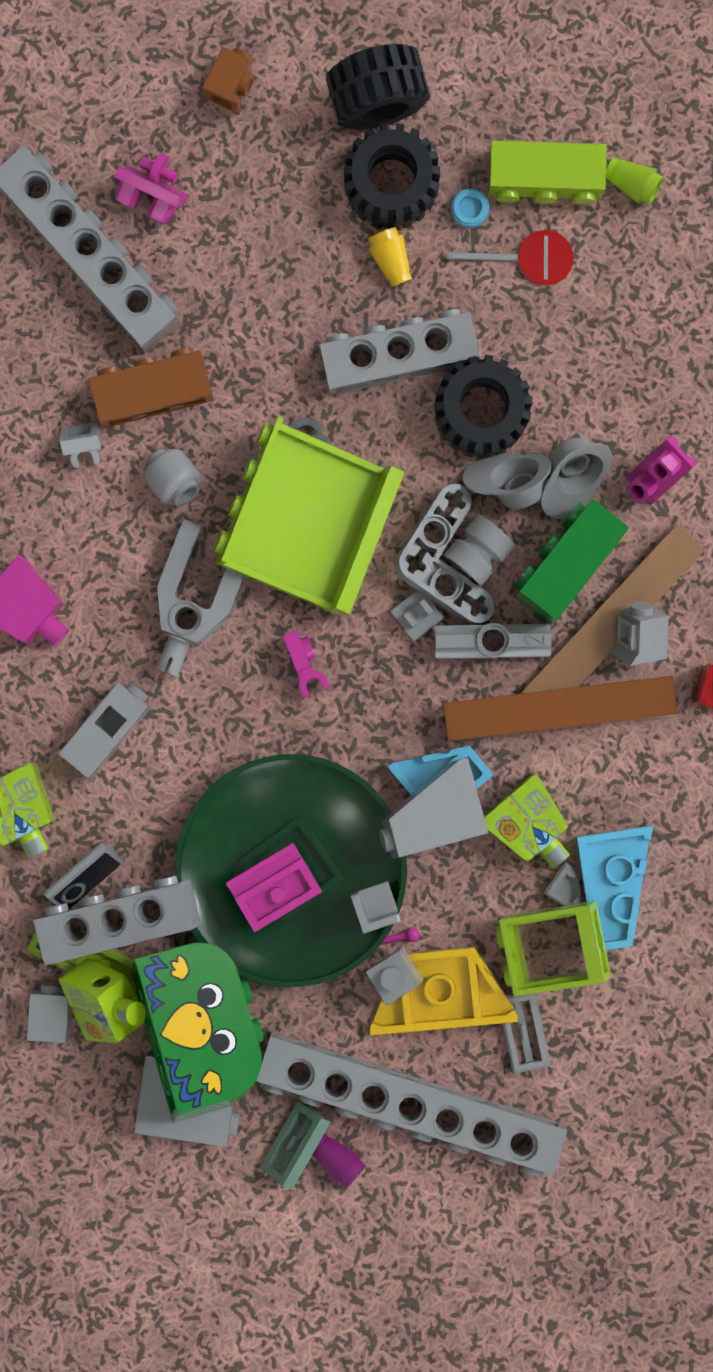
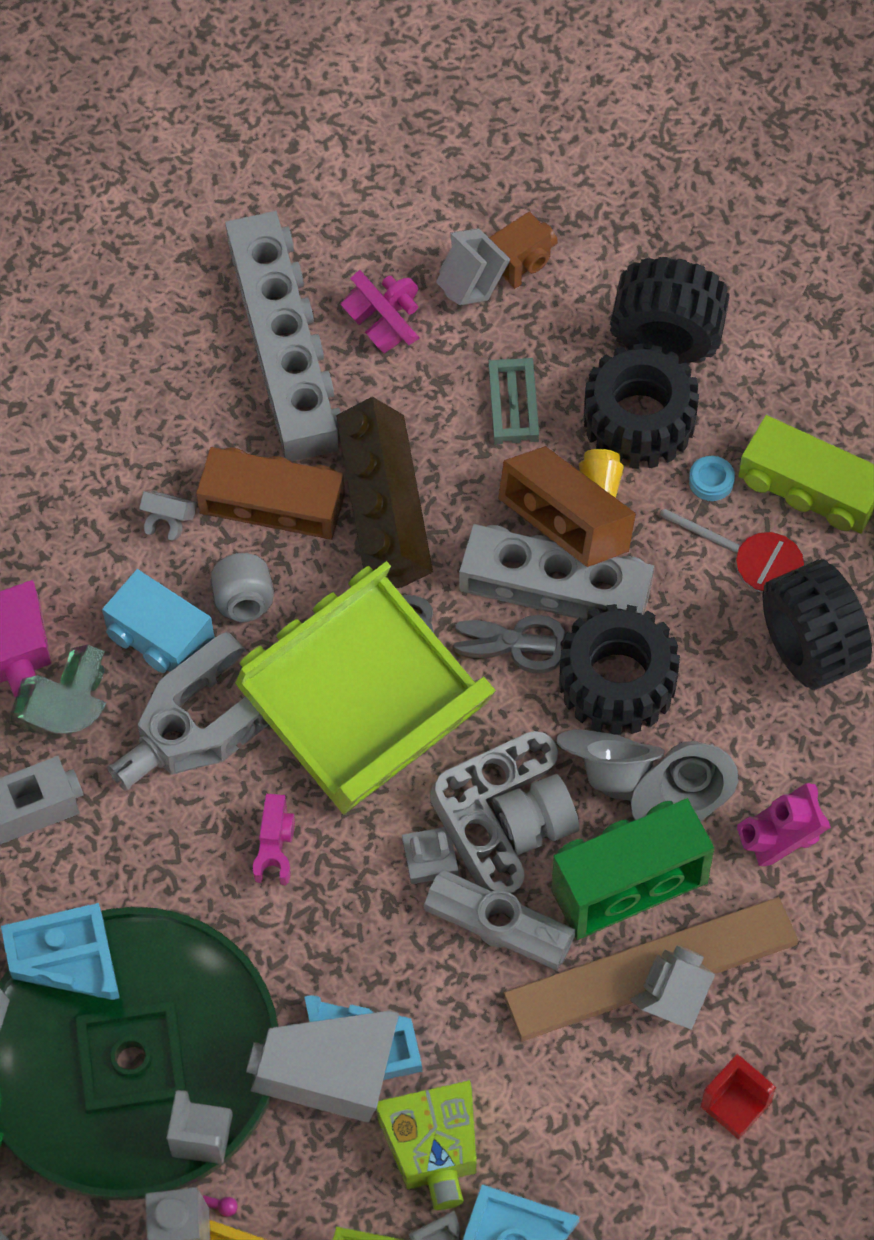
camera: 25 degrees right, 25 degrees down
(101, 638) = (65, 706): none -> brick
(128, 540) = (156, 622): none -> medium azure brick
(202, 118) = (471, 267): none -> light grey window
(210, 829) = (63, 952): none -> medium azure wing
(237, 348) = (384, 491): none -> dark brown brick
(273, 887) = (97, 1050): dark pink plate -> none
(305, 244) = (514, 433): none -> sand green tile
(381, 295) = (566, 506): none -> dark orange brick
(382, 422) = (496, 640): none -> flat silver piece
(560, 708) = (539, 1028): dark orange tile -> none
(613, 303) = (817, 624): none -> black tyre

